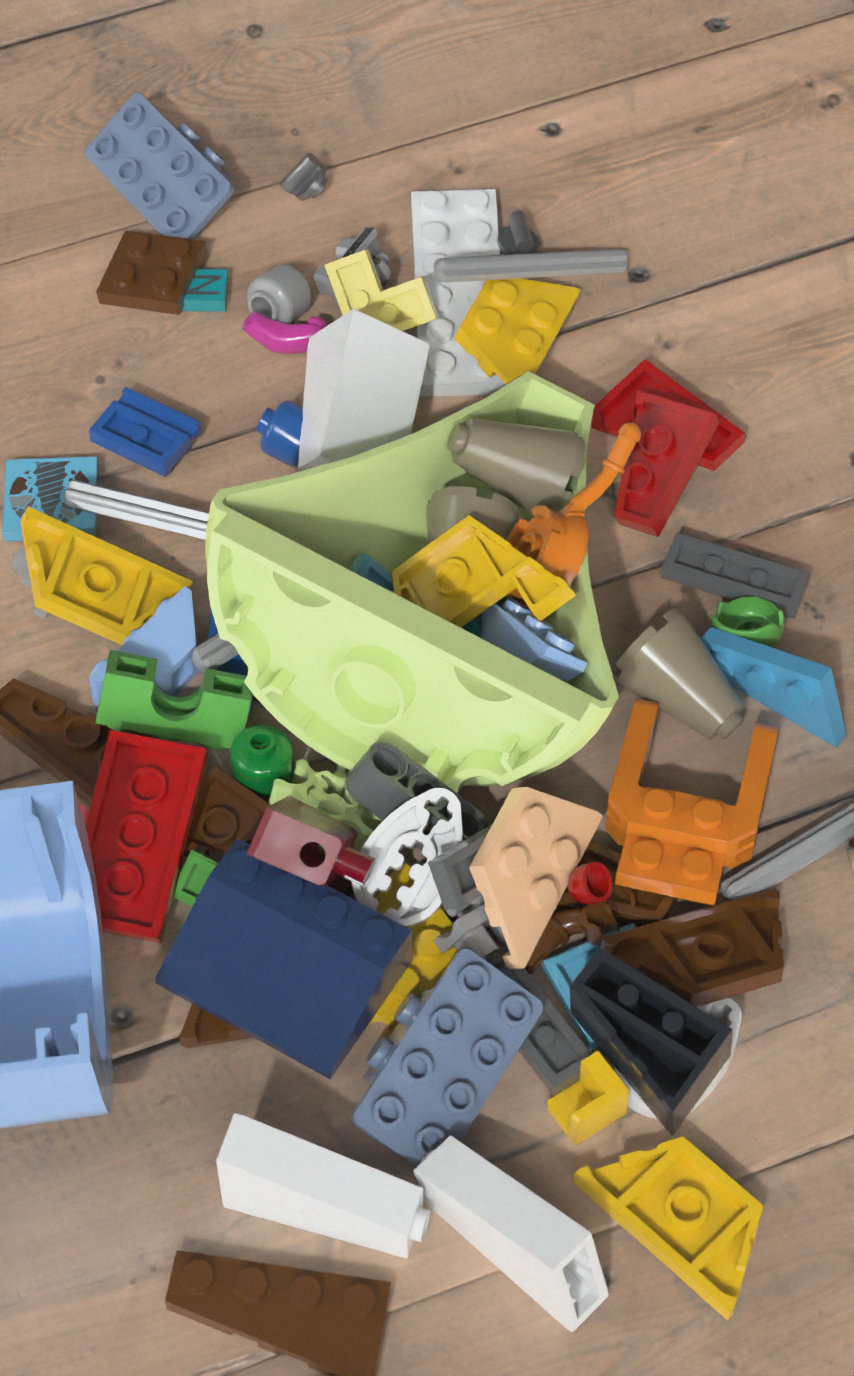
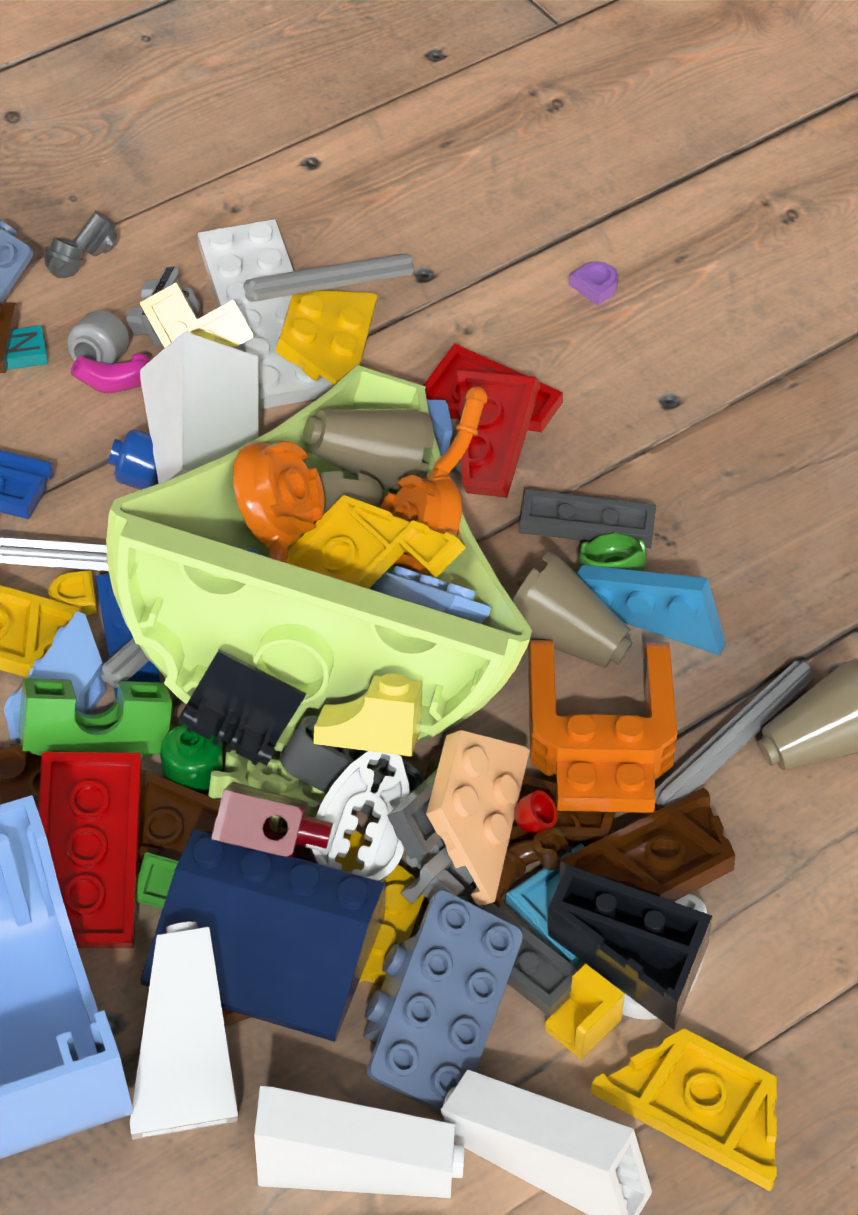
camera: 15 degrees left, 5 degrees down
(178, 1053) = (184, 1049): none -> white slope
(190, 562) = (75, 590): none -> yellow tile
(267, 198) = (63, 258): none -> dark grey plate
(313, 721) = (241, 707): none -> black hinge
(399, 506) = (277, 494): none -> orange piece
(447, 763) = (378, 721): none -> light yellow arch
(517, 237) = (306, 255): flat silver plate -> none
(601, 440) = (441, 423): none -> medium blue slope
(818, 311) = (595, 281): none -> medium lavender tile

